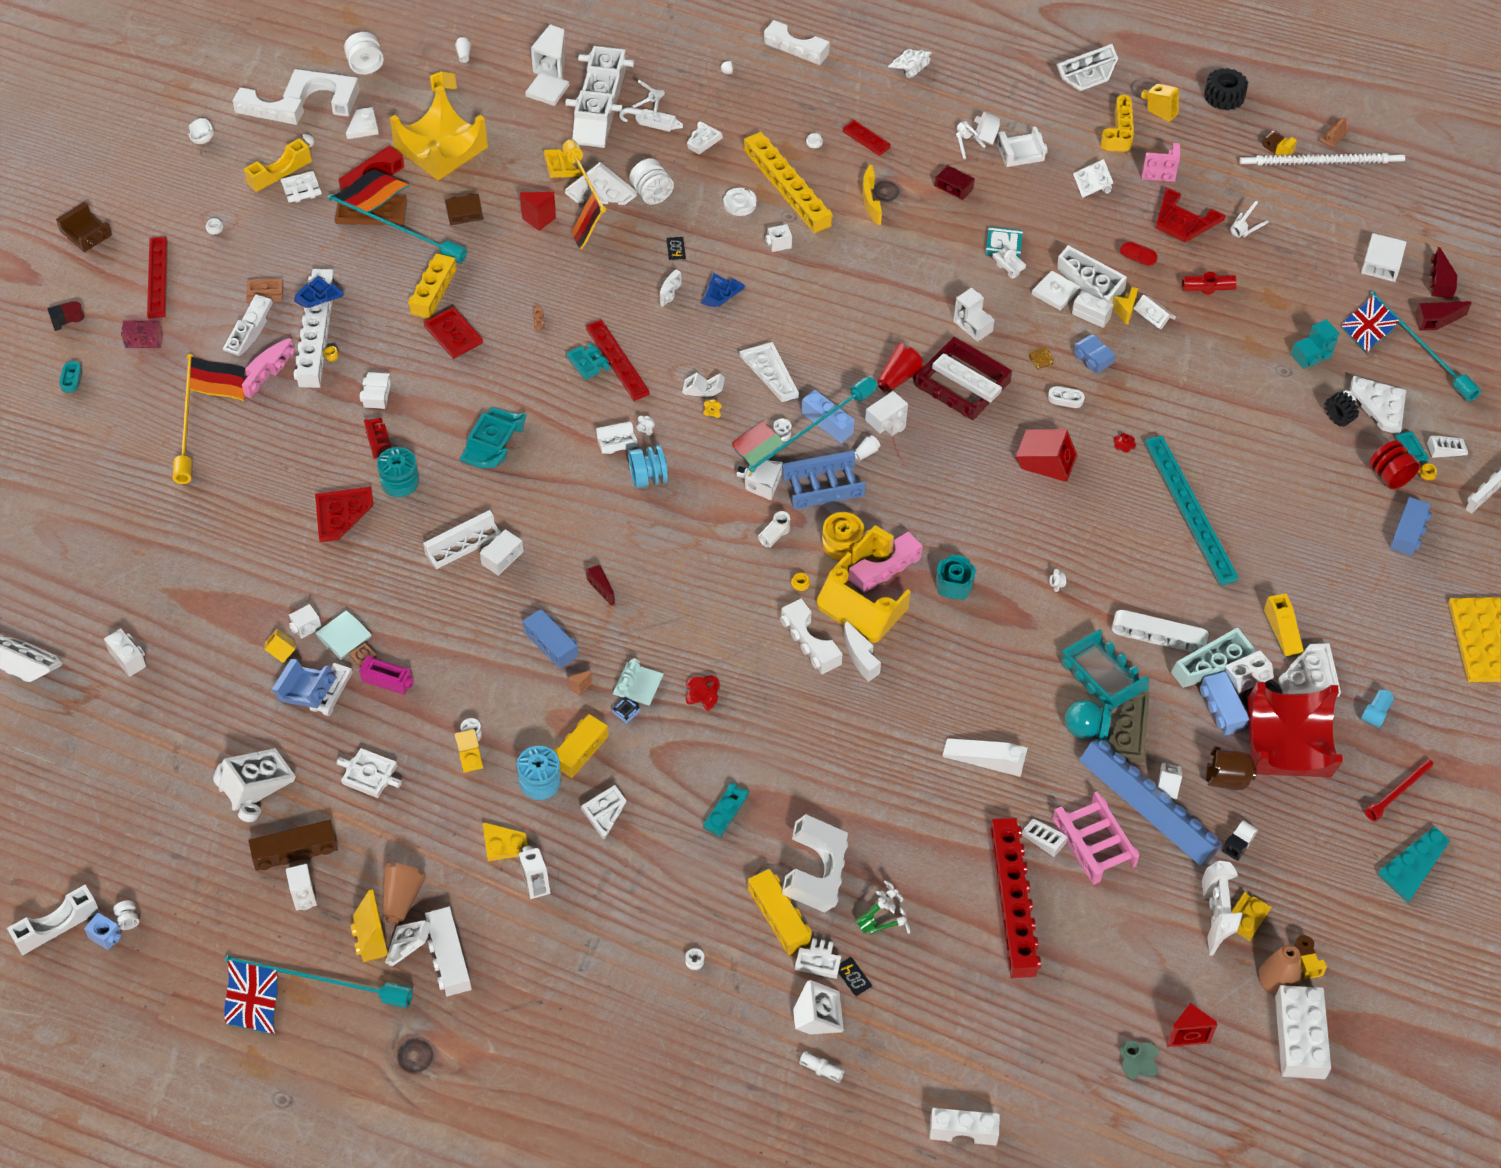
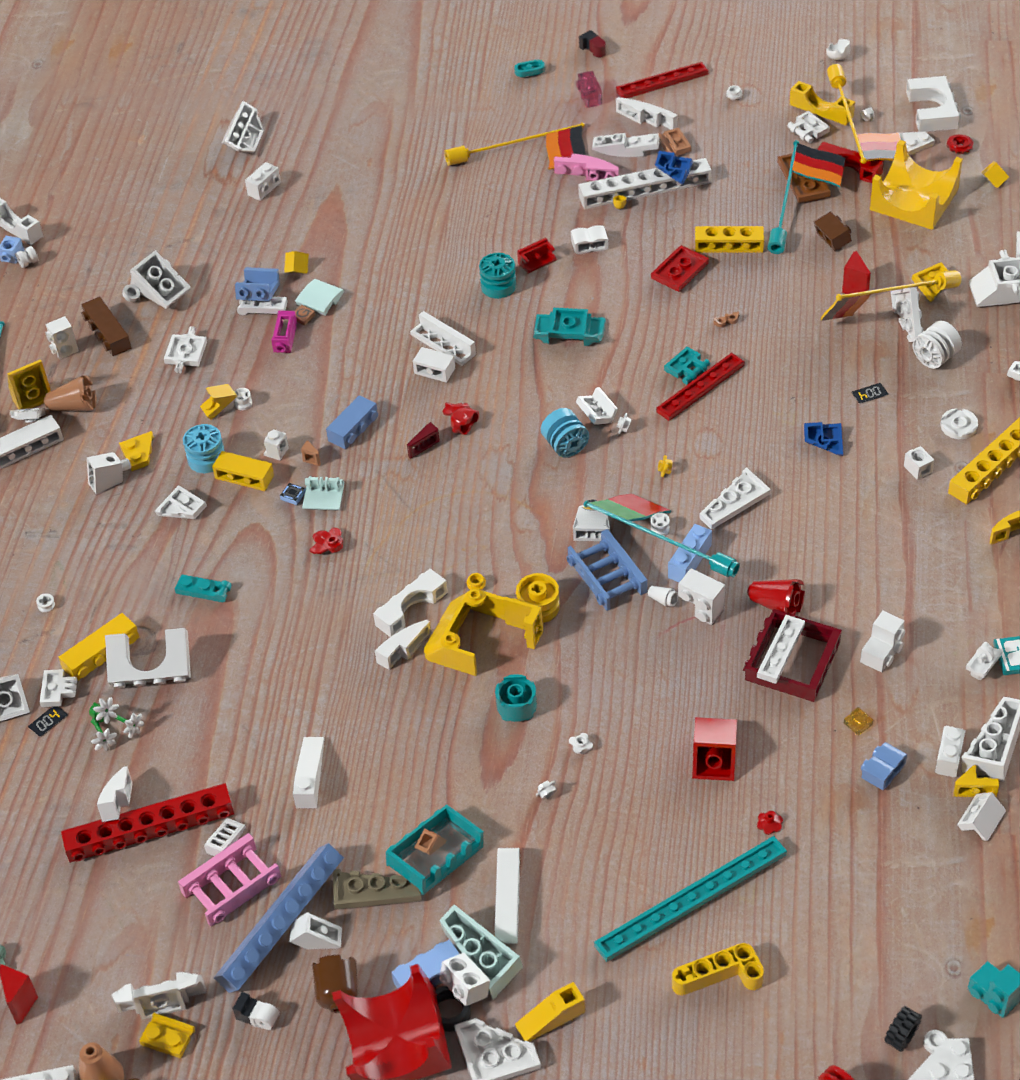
camera: 80 degrees right, 5 degrees down
(83, 227) = (694, 23): reddish brown panel -> none
(203, 302) = (642, 111): none -> white slope
(286, 110) = (896, 89): white arch -> none
(304, 621) = (324, 269): white brick -> none
(341, 511) = (448, 257): red plate -> none
(362, 141) = (870, 145): none -> flag
(363, 53) = (992, 109): white wheel -> none
(391, 89) = (964, 143): none -> red gear
(555, 710) = (276, 444): none -> white brick
(583, 546) = (461, 417): none -> red animal
(671, 283) = (802, 395): white slope -> none
(699, 386) = (692, 453): white slope -> none
(775, 529) = (535, 547): white piece -> none
(867, 574) = (538, 652): bright pink arch -> none
(984, 913) = (115, 795): none -> white slope
(1012, 550) = (580, 748): none -> white plate
(1056, 290) = (968, 714): white plate -> none
(1066, 397) = (808, 754): white plate -> none
(1086, 719) = (364, 846): teal tile -> none
(1101, 671) = (429, 842): none -> nougat slope
(1259, 495) = (688, 980): none -> yellow beam

